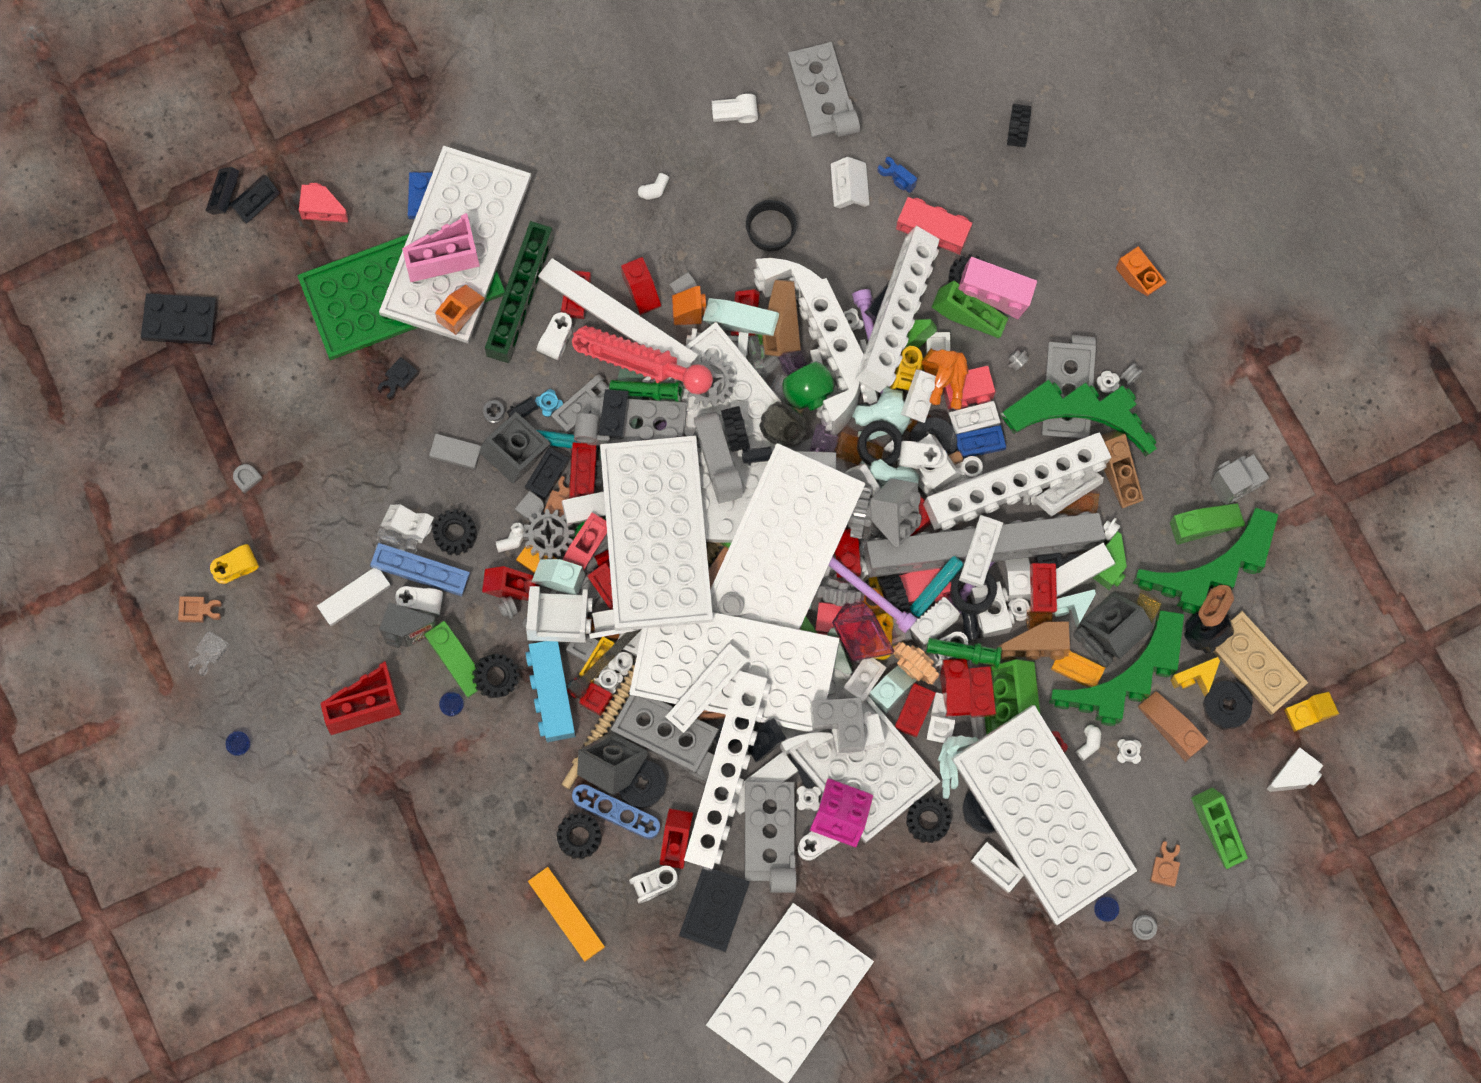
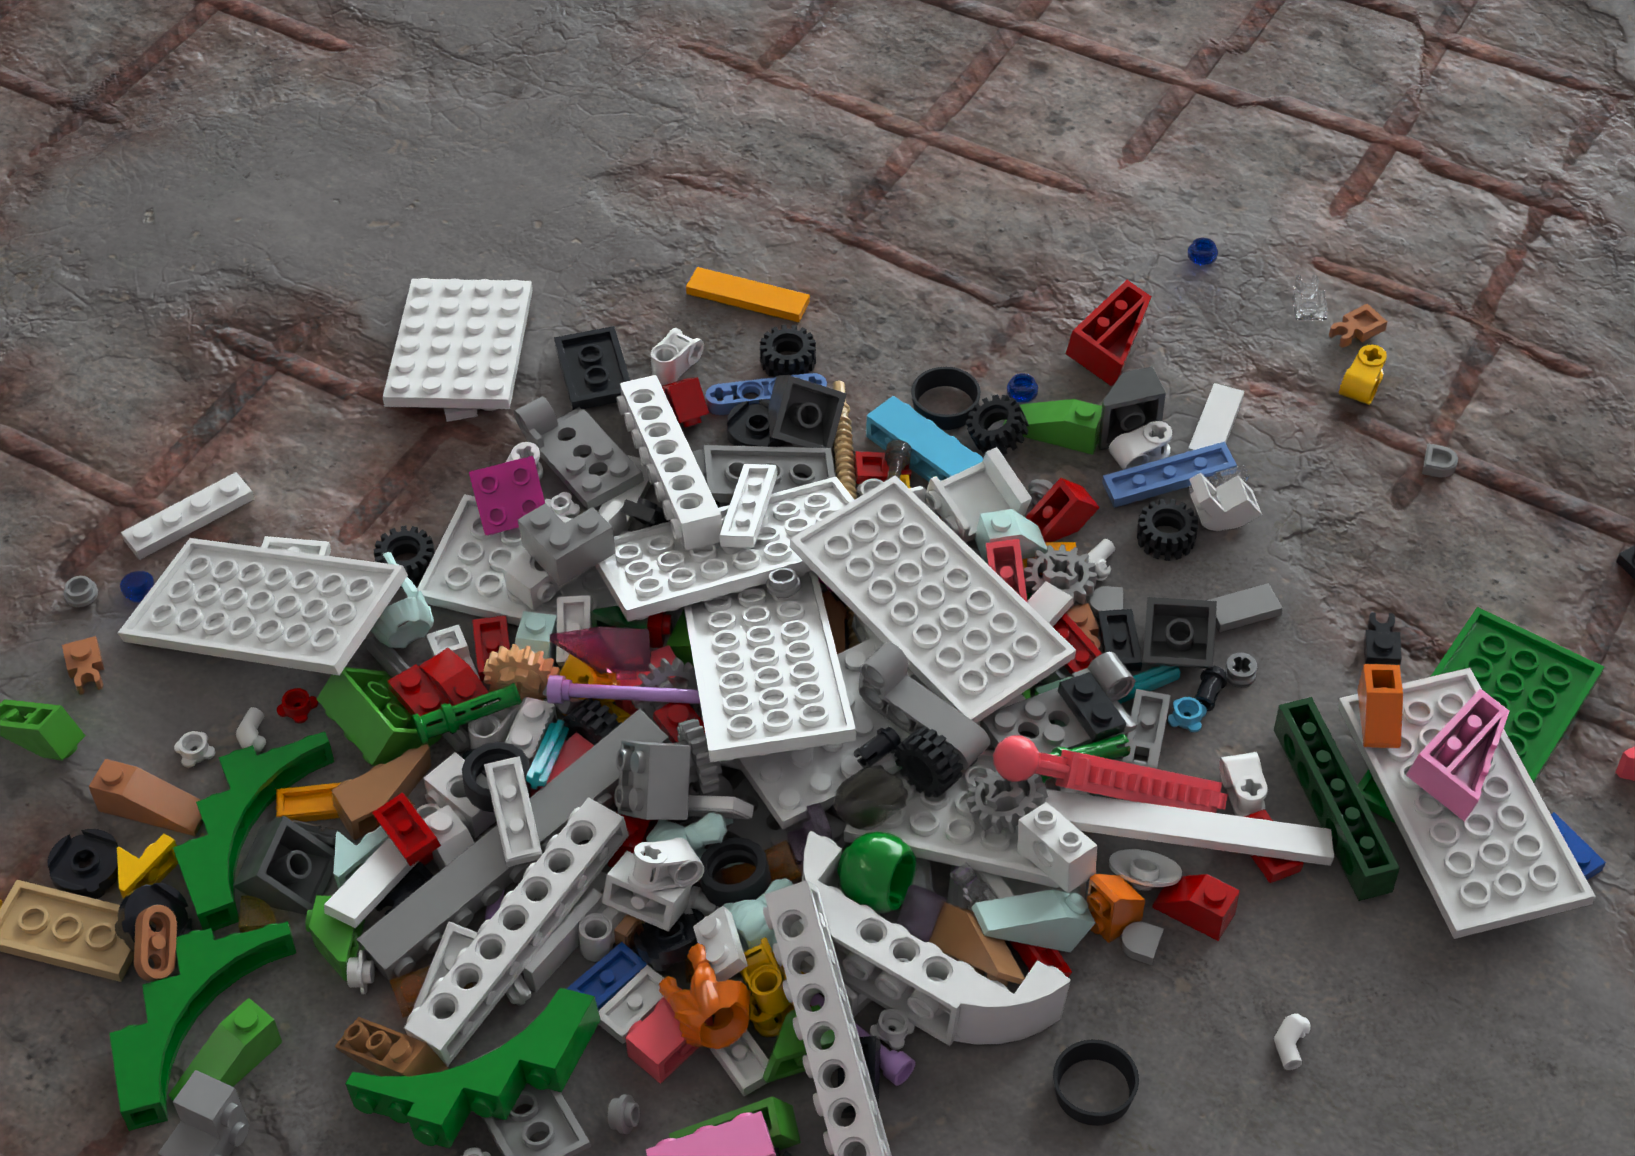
camera: 150 degrees right, 25 degrees down
(500, 704) = (948, 377): none -> black tyre
(652, 307) = (1145, 868): none -> white dish
(707, 329) = (1057, 847): none -> white brick
(1046, 954) = (187, 516): none -> white plate

